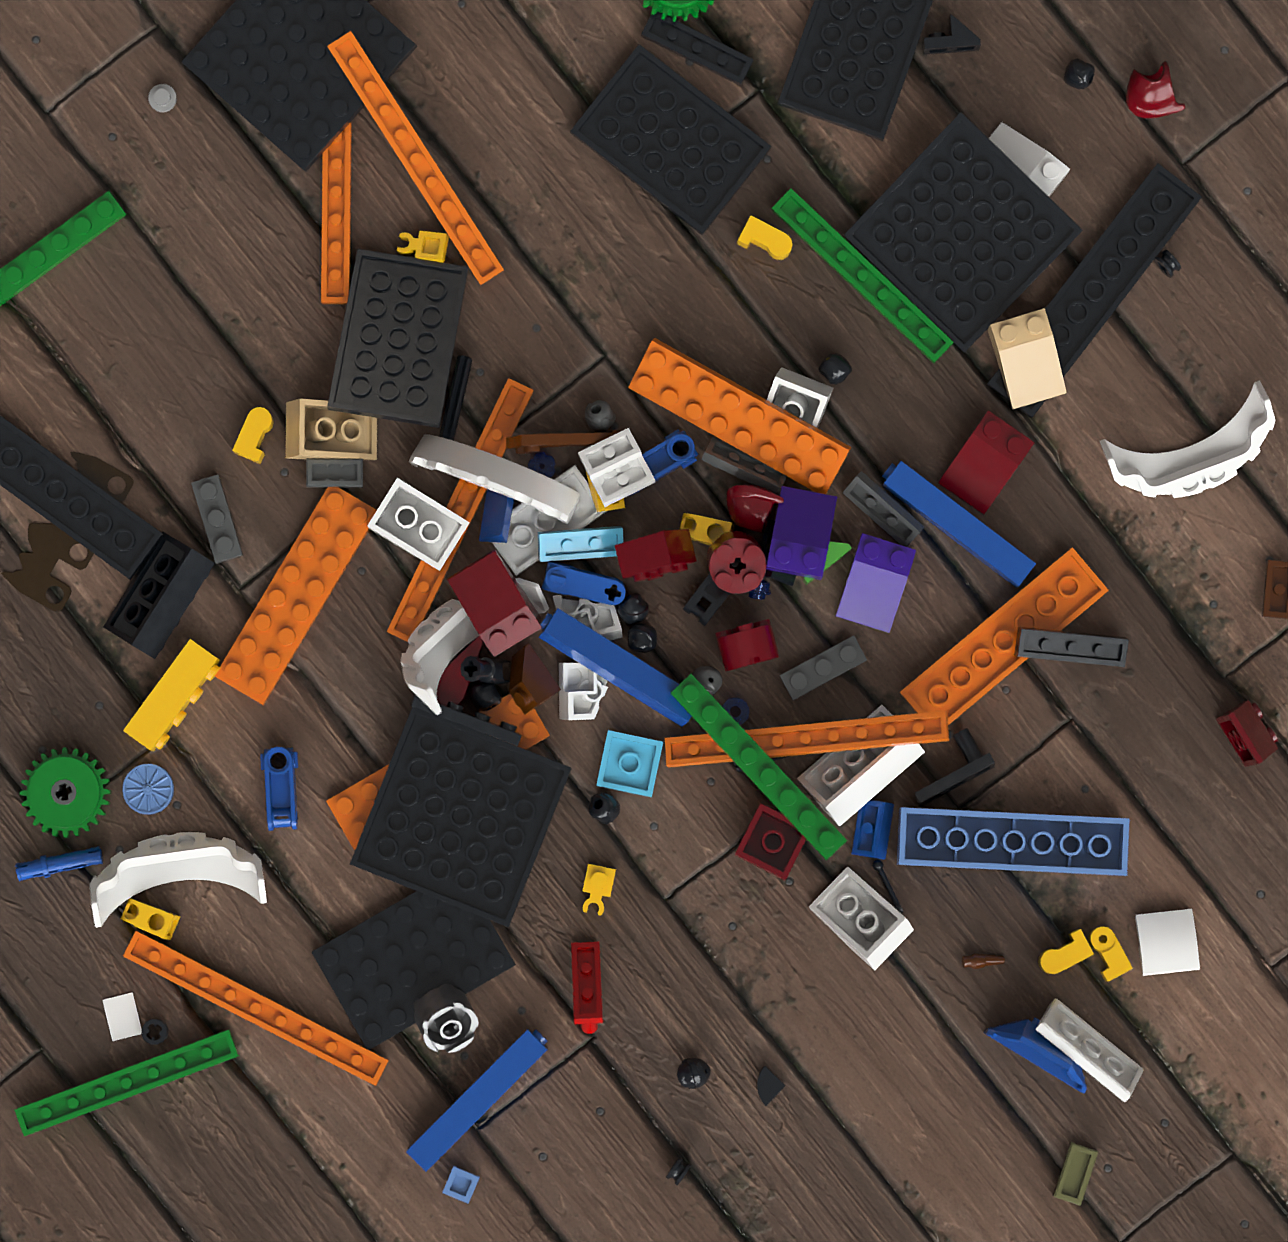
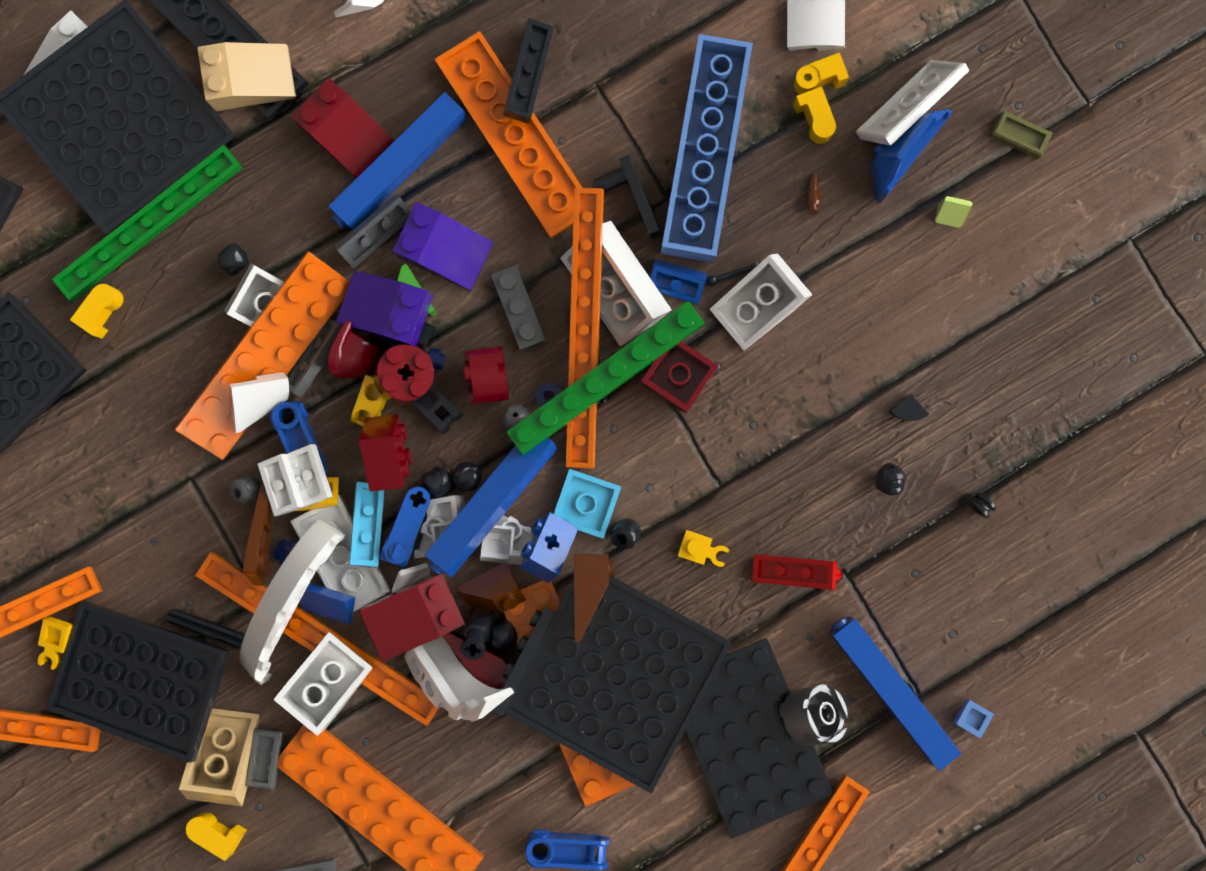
camera: 80 degrees left, 0 degrees up
(552, 777) = (590, 583): none -> reddish brown slope
(581, 730) = (548, 547): none -> brick
(694, 417) = (257, 398): none -> white slope
(981, 1108) = (952, 211): none -> yellowish green slope

